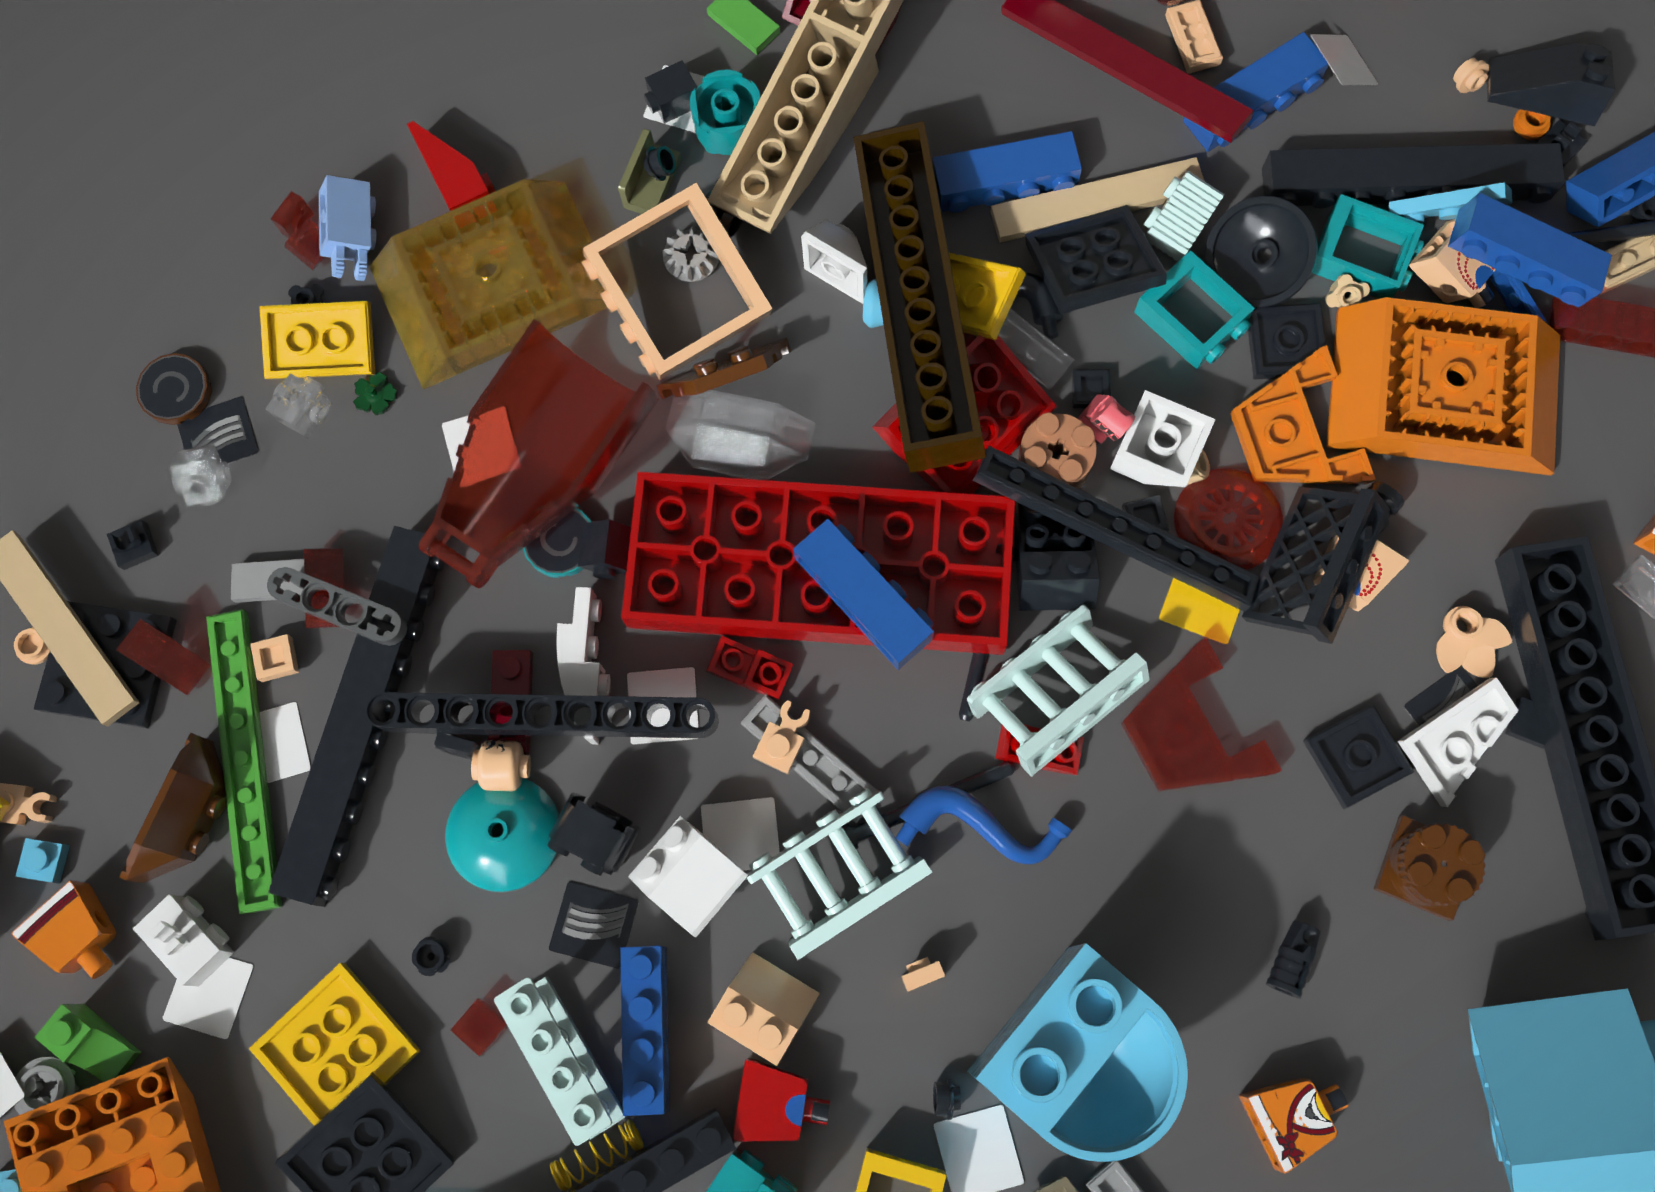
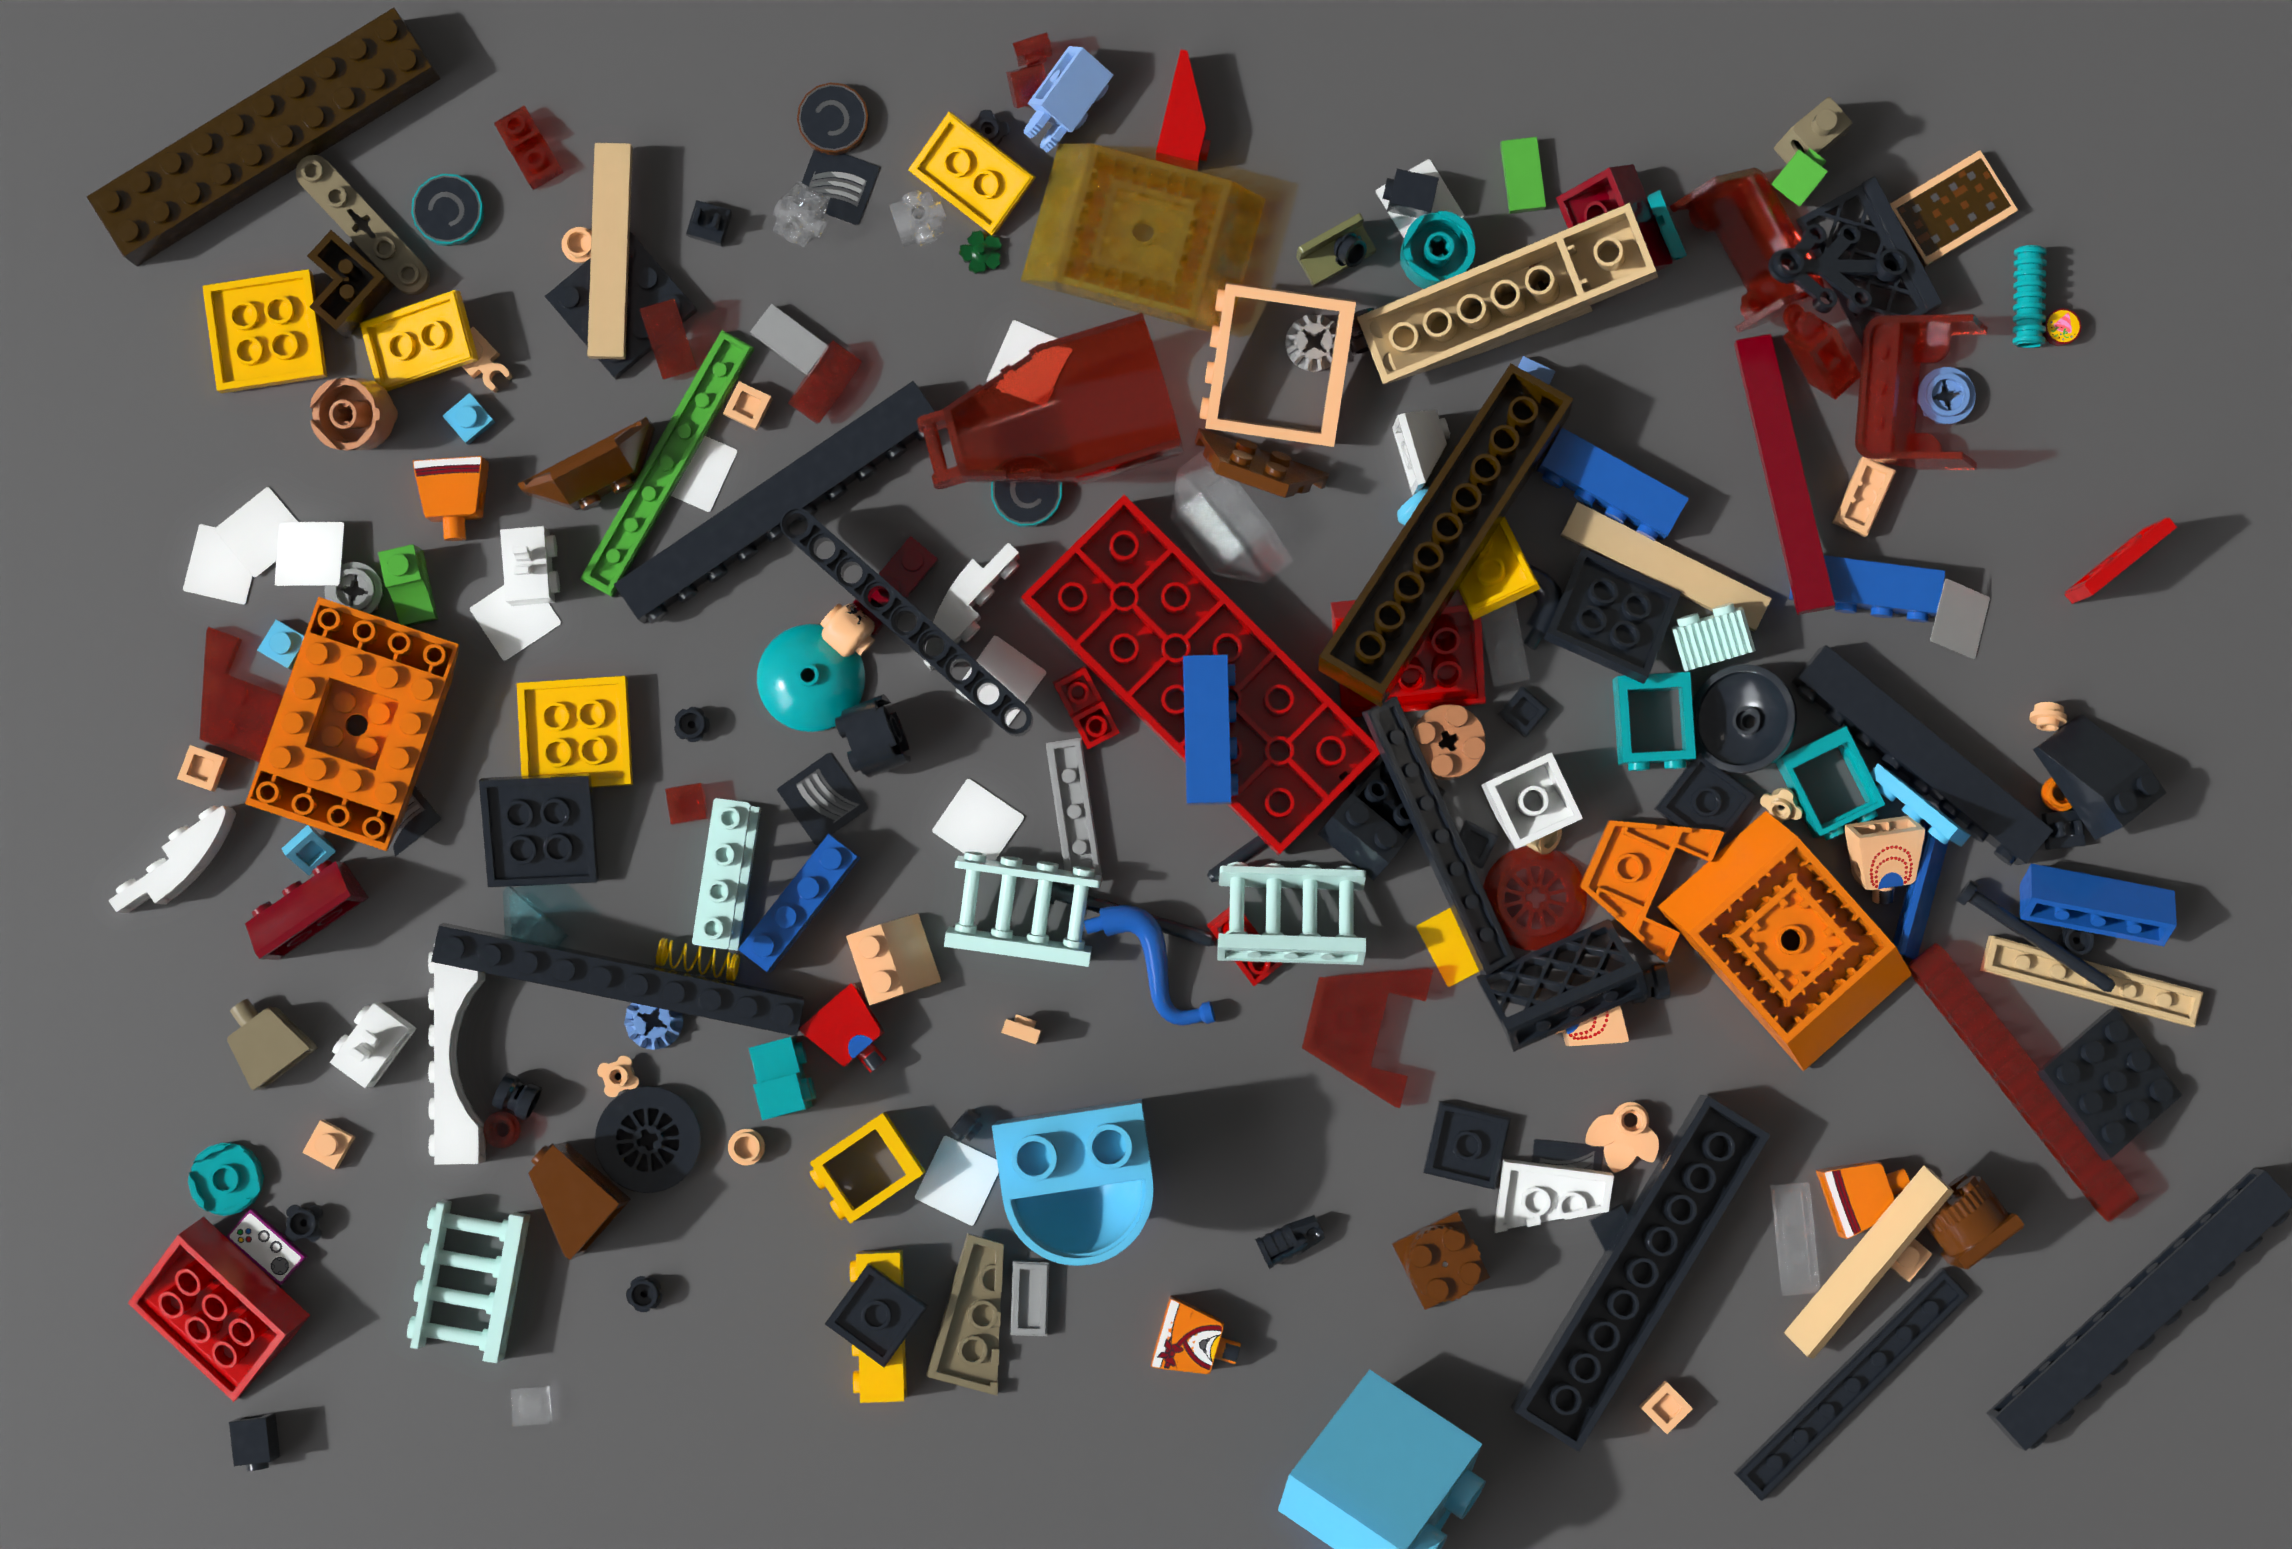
camera: 35 degrees right, 10 degrees up
(338, 603) = (819, 412): dark grey beam -> none
(455, 746) = (828, 588): black tile -> none
(604, 548) = (1054, 529): black brick -> none
(687, 876) = (916, 823): white slope -> none
(781, 743) = (1060, 784): light nougat plate -> none
(1106, 418) = (1506, 747): coral leg -> none
(1530, 250) = (1933, 894): blue brick -> none

